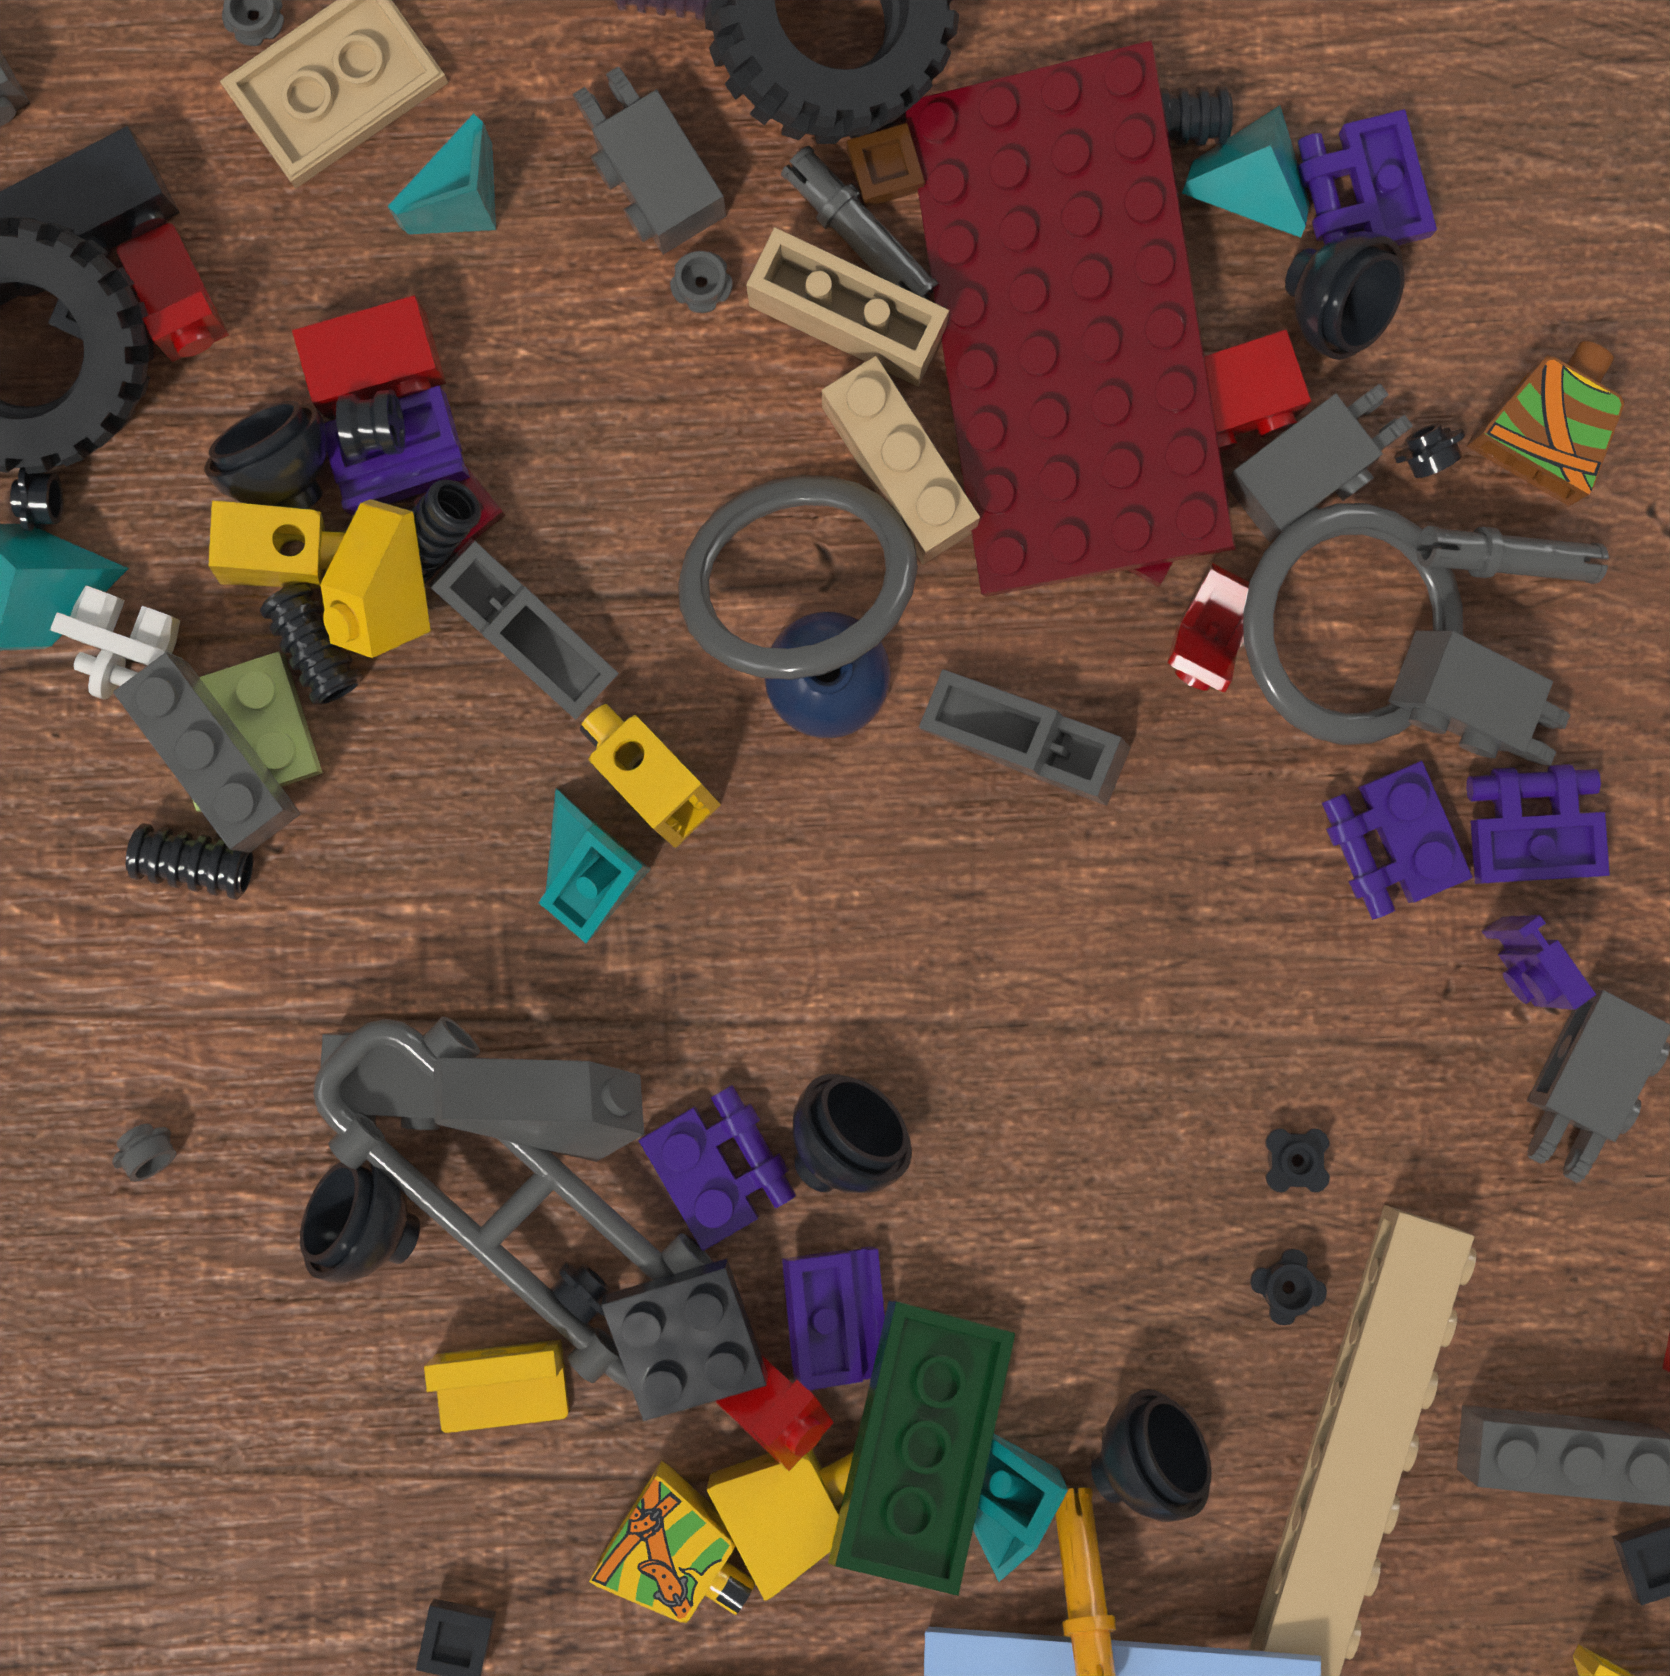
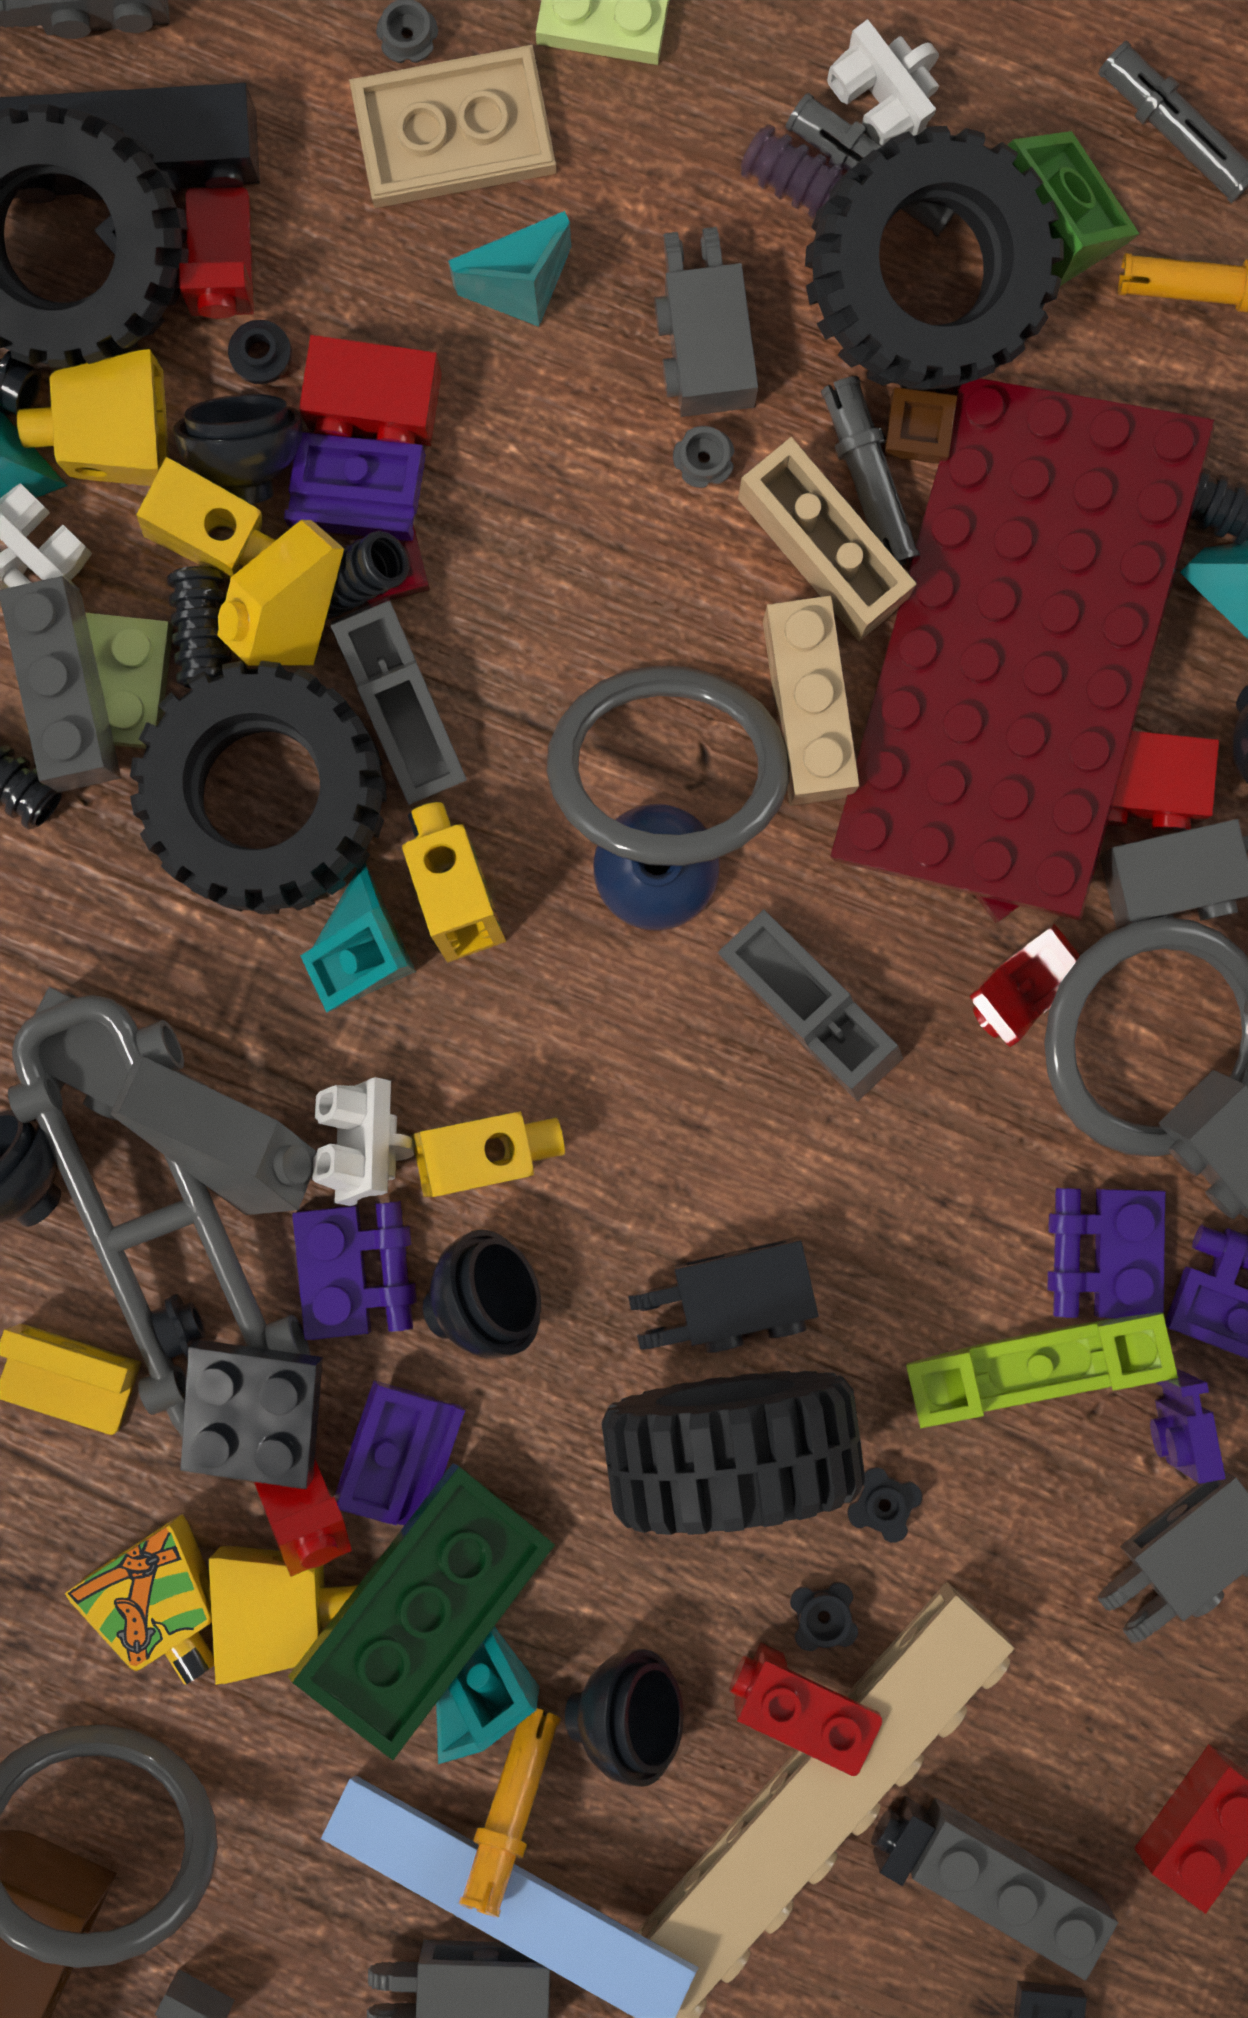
camera: 25 degrees right, 0 degrees up
(136, 493) = (104, 420): none -> yellow torso
(260, 382) = (264, 369): none -> black plate
(350, 749) = (200, 729): none -> black tyre
(370, 424) = (342, 452): black wheel -> none
(677, 1044) = (365, 1141): none -> white hips
(767, 1021) = (455, 1156): none -> yellow torso
(1076, 1033) = (733, 1297): none -> black hinge
(1141, 1173) = (733, 1452): none -> black tyre
(1309, 1381) = (802, 1712): none -> red bracket
(1383, 971) = (1041, 1367): none -> lime slope
(1450, 1456) = (901, 1839): none -> black plate

